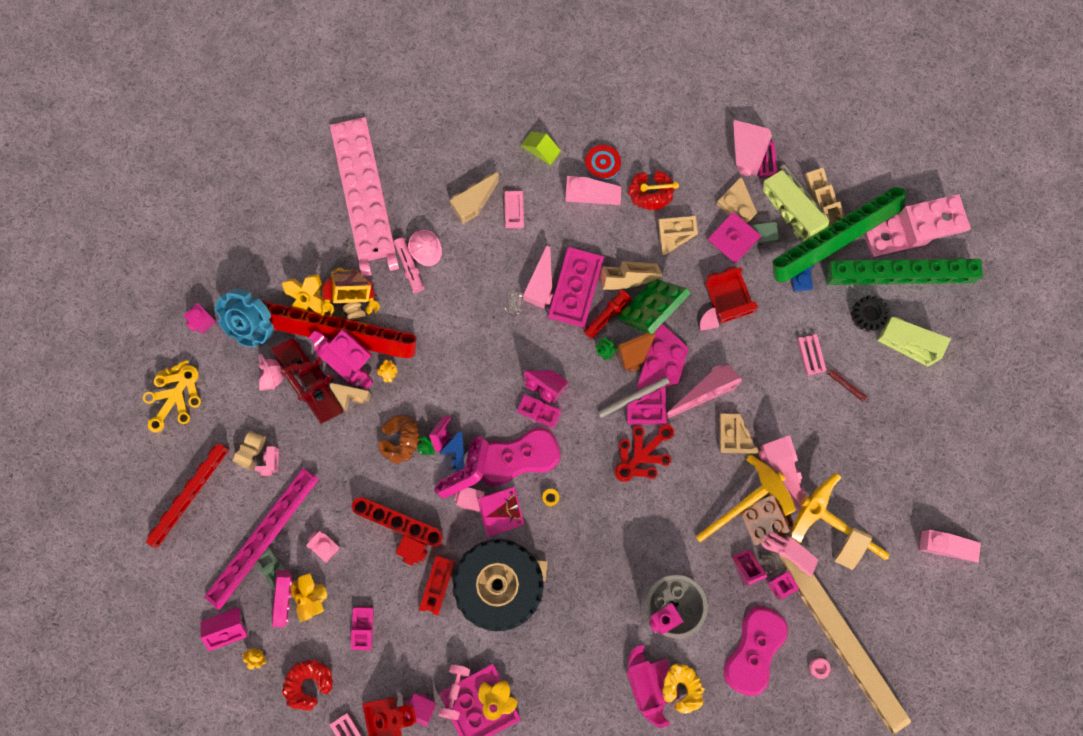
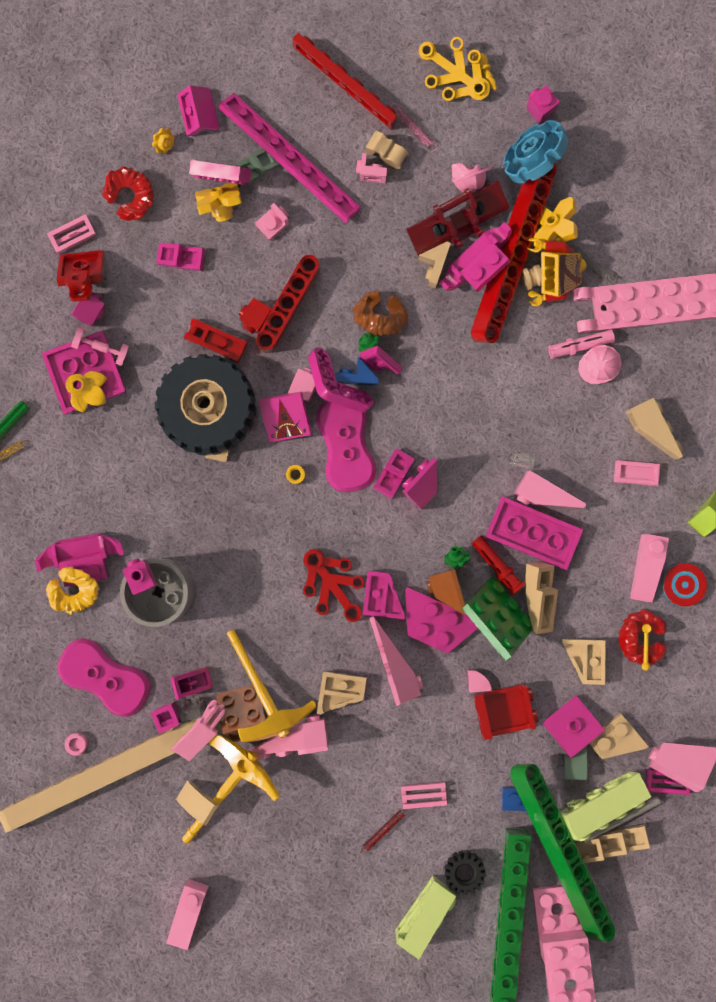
camera: 100 degrees right, 10 degrees up
(233, 419) = (410, 119): none -> bright pink piece
(387, 371) = (458, 308): yellow plant -> none
(635, 396) = (397, 582): light grey bar -> none

